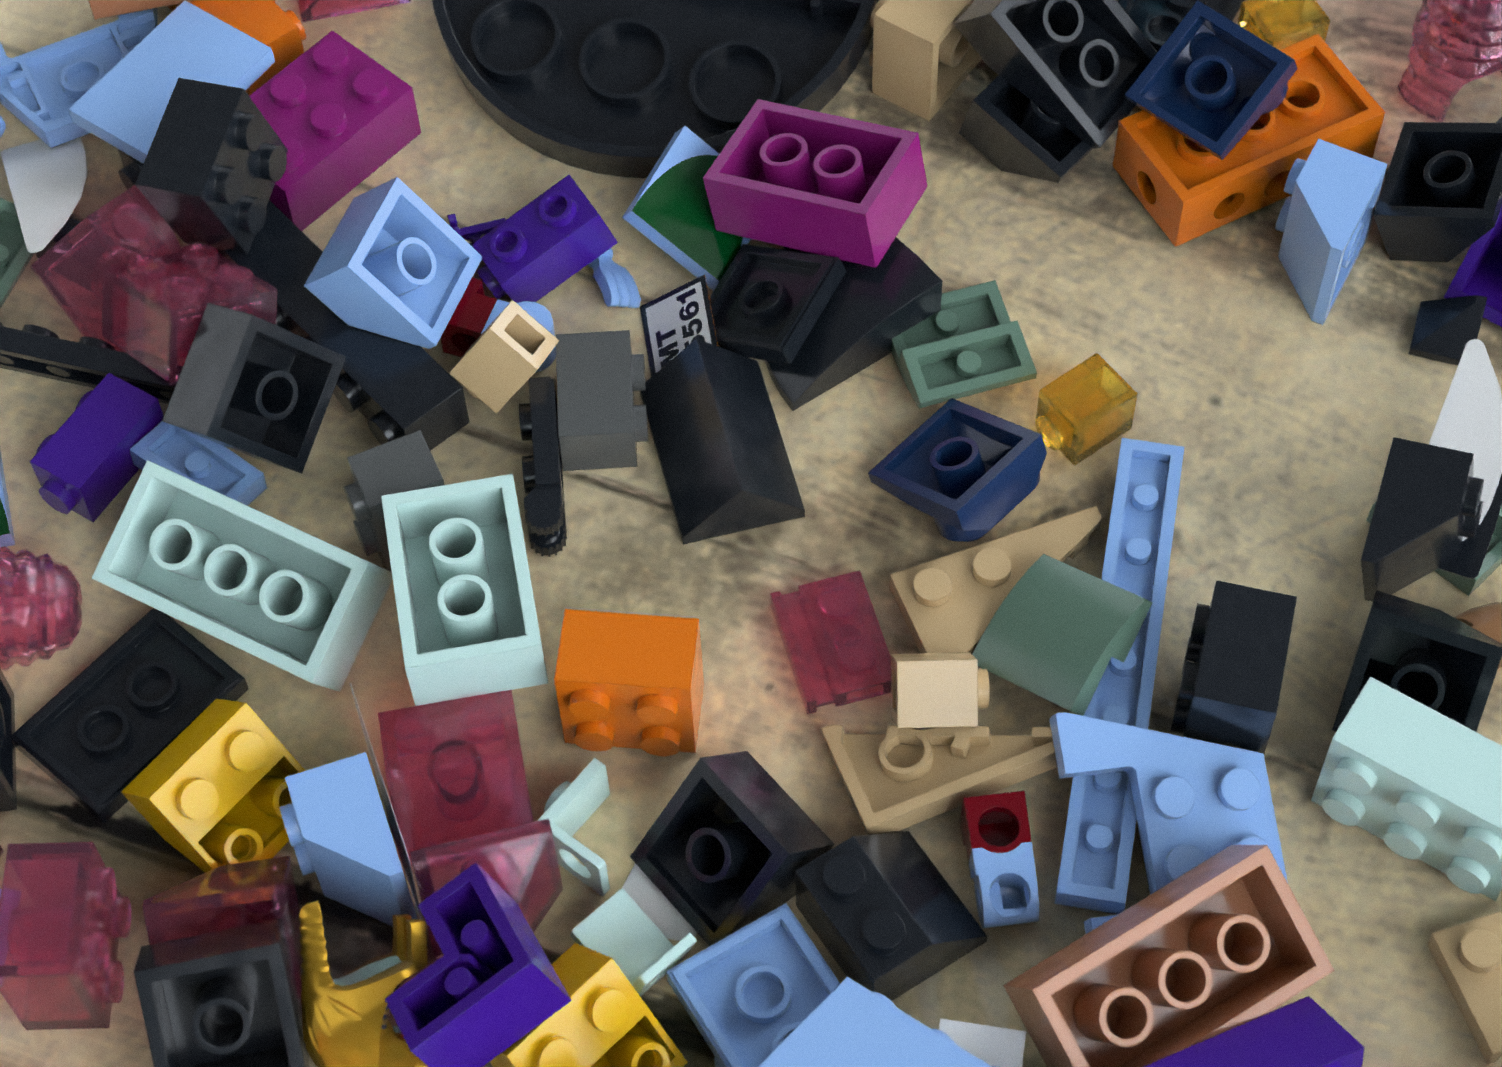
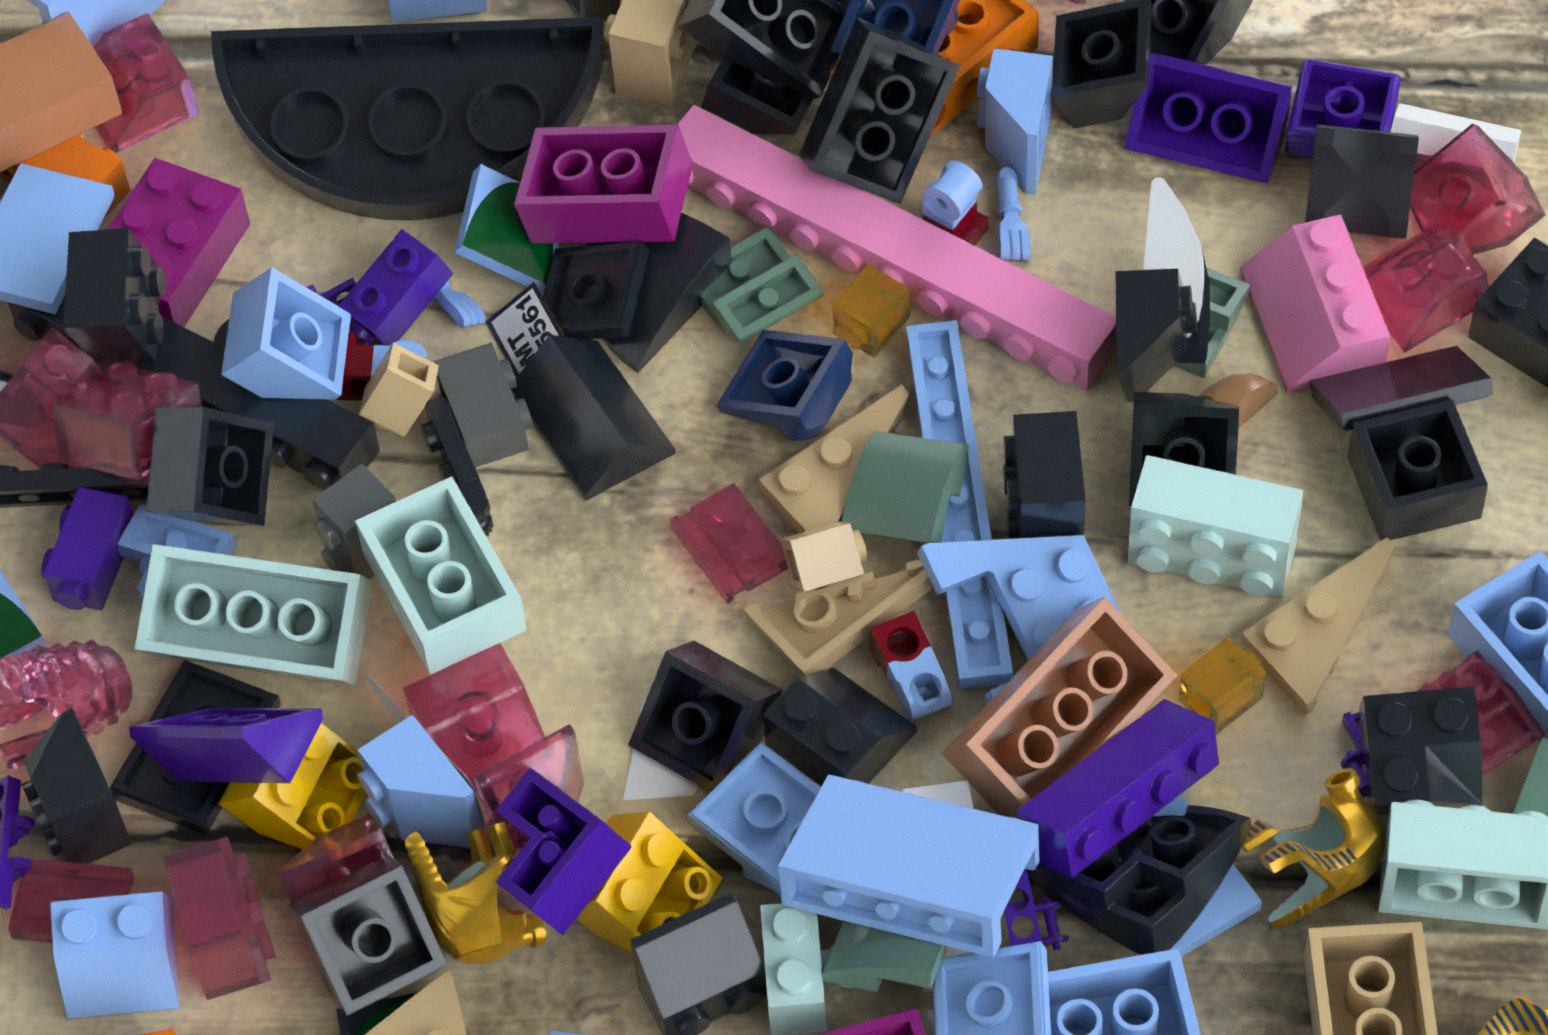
camera: 15 degrees left, 0 degrees up
(152, 722) = (231, 743): none -> dark purple slope
(567, 811) = (577, 714): light aqua bracket -> none
(630, 681) = (589, 612): orange brick -> none
(632, 940) = (644, 794): light aqua bracket -> none
(1161, 177) = (878, 111): none -> black slope
(1180, 380) = (860, 229): none -> bright pink brick
(1216, 316) = (952, 203): none -> light blue leg
(1282, 359) = (1012, 231): none -> light blue piece
(1390, 995) = (1223, 683): none -> clear yellow brick
(1446, 327) = (1132, 172): black slope -> none

